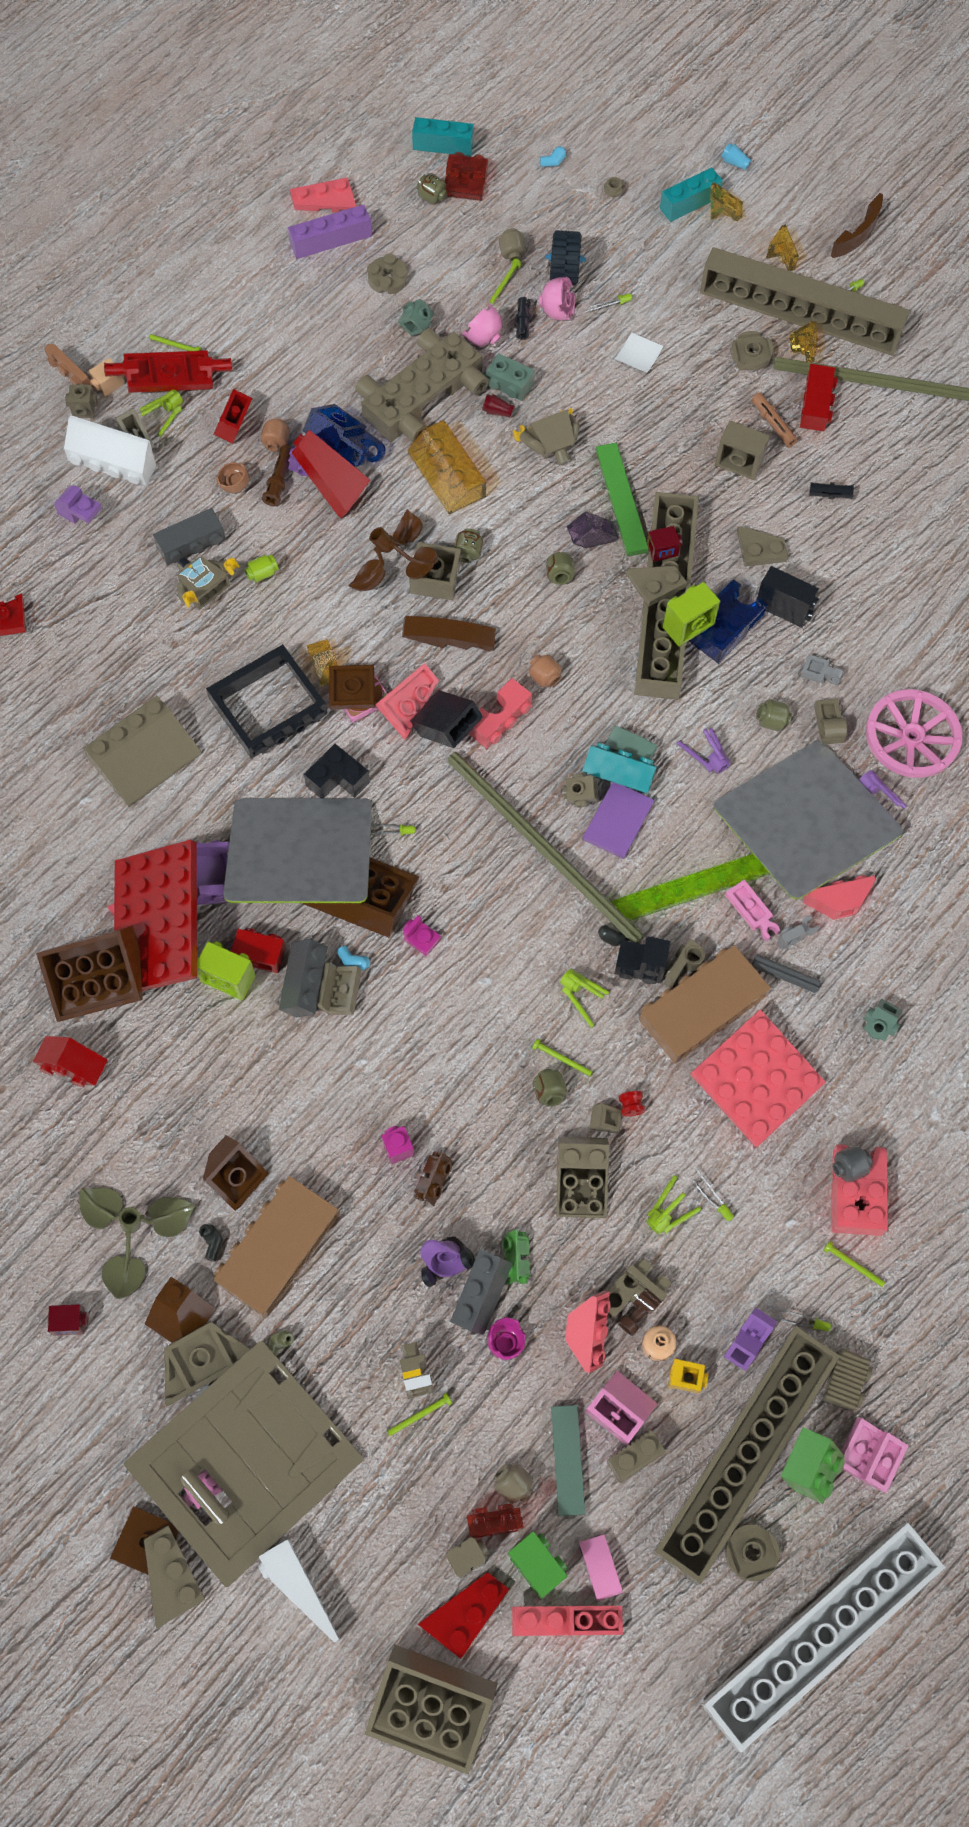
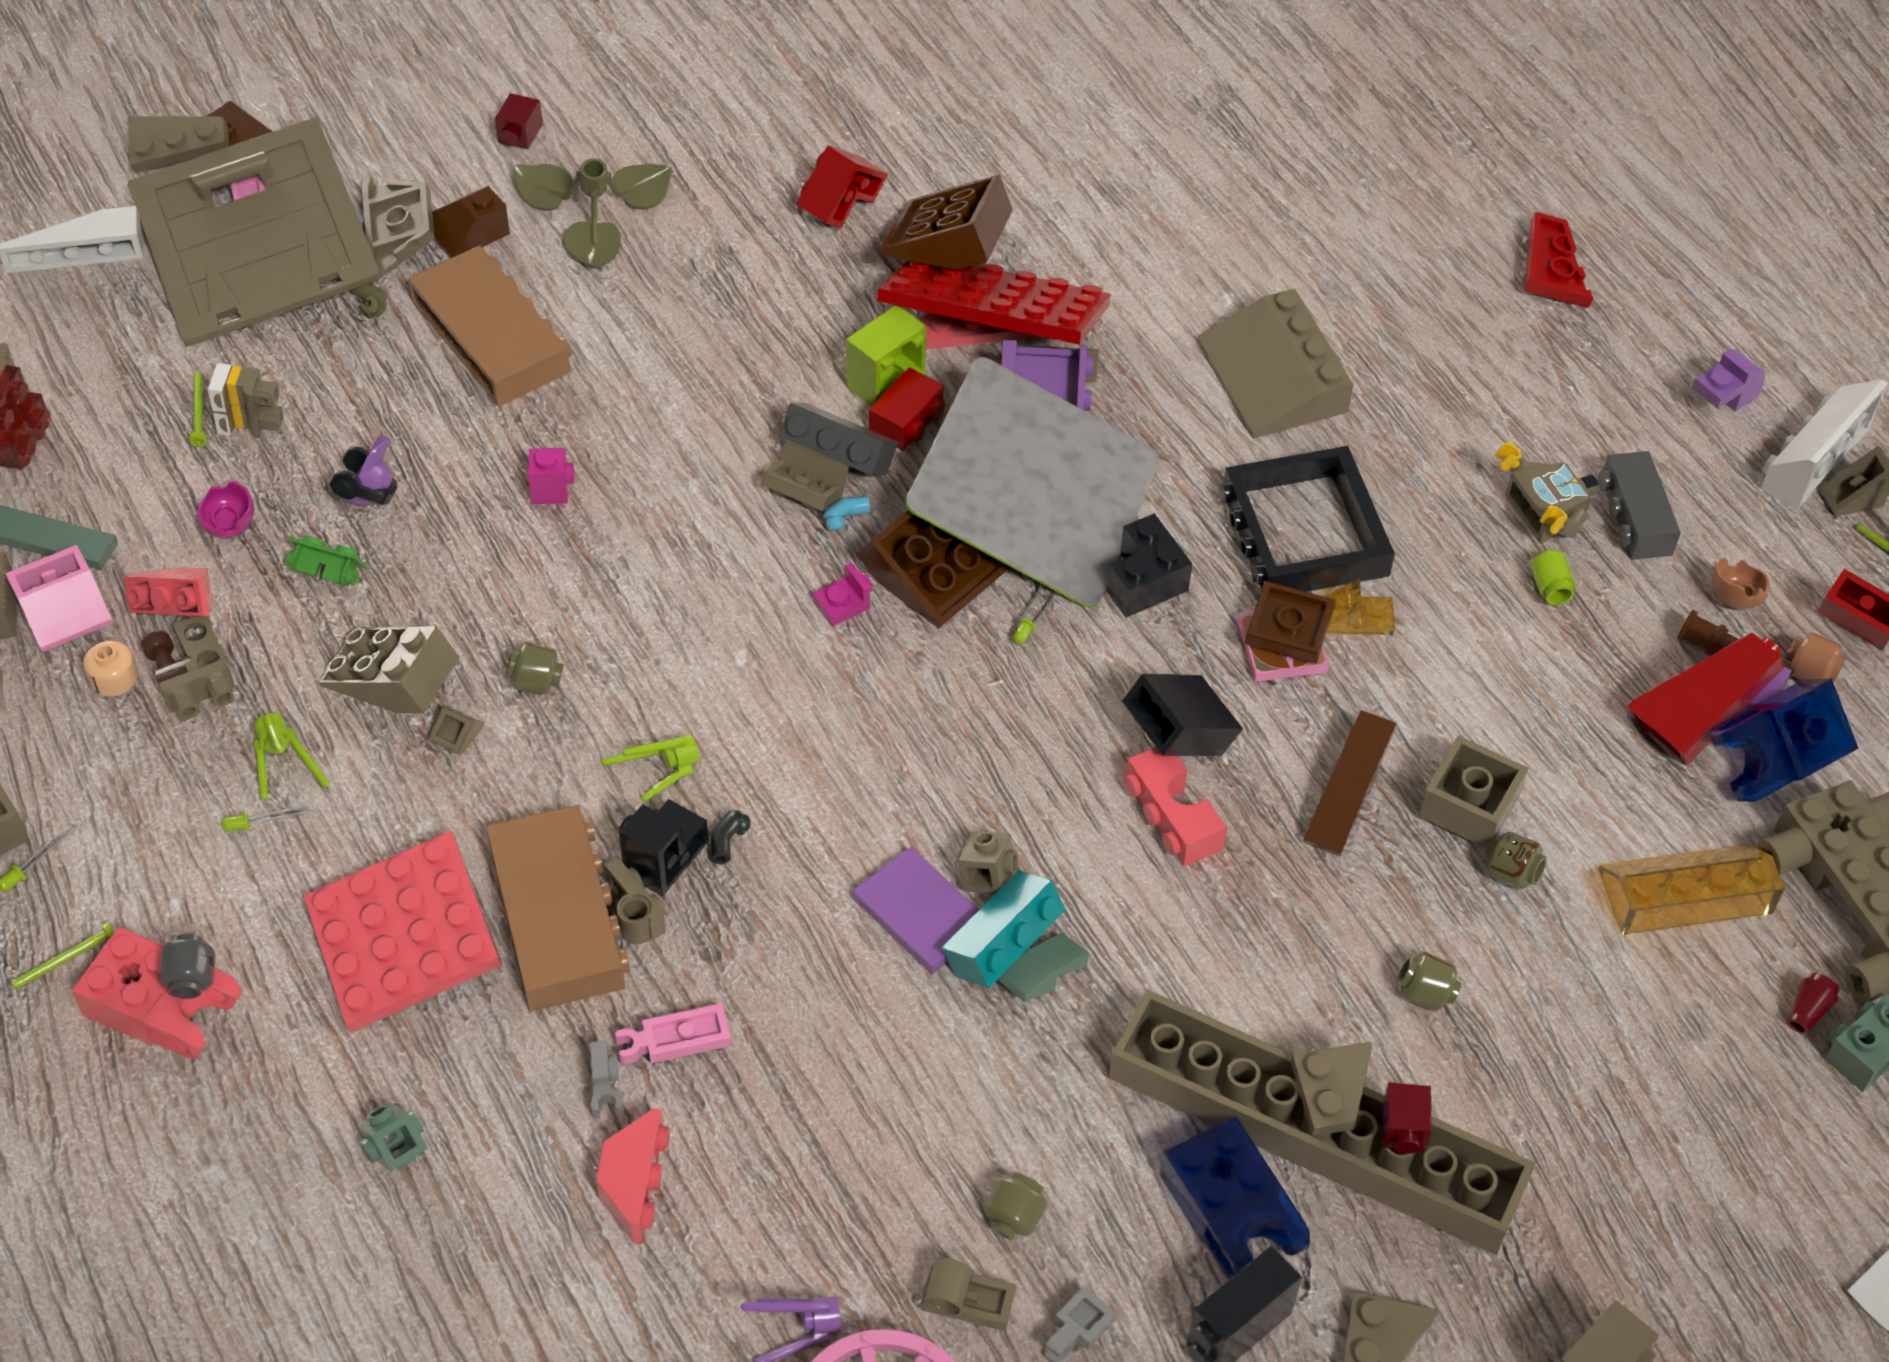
camera: 110 degrees right, 15 degrees down
(213, 1239) = (534, 275): pearl dark grey arm -> none
(233, 1172) = (611, 305): reddish brown slope -> none
(407, 531) = (1531, 711): reddish brown plant -> none
(408, 699) = (1249, 693): coral wing -> none
(438, 1168) = (482, 508): reddish brown hinge -> none
(481, 1292) = (297, 494): dark grey brick -> none
(513, 1483) = (51, 465): dark tan head -> none
(537, 1044) = (607, 683): lime piece -> none
(545, 670) = (1229, 889): nougat head -> none
(545, 848) = (910, 787): olive axle -> none
(551, 435) = (1721, 1064): dark tan torso -> none
(591, 530) = (1493, 1060): clear purple slope -> none
(621, 499) = (1571, 1139): bright green tile -> none
(632, 1103) = (455, 758): red wheel -> none
(681, 1367) = (49, 687): yellow brick -> none
(690, 887) = (755, 1029): clear neon green plate -> none
(691, 613) = (1235, 1089): lime brick -> none
(718, 759) = (966, 1086): medium lavender plant -> none
(750, 1339) = (45, 774): medium lavender brick -> none
(786, 973) = (548, 1044): dark grey axle -> none
(807, 819) = (795, 1181): flat silver piece -> none

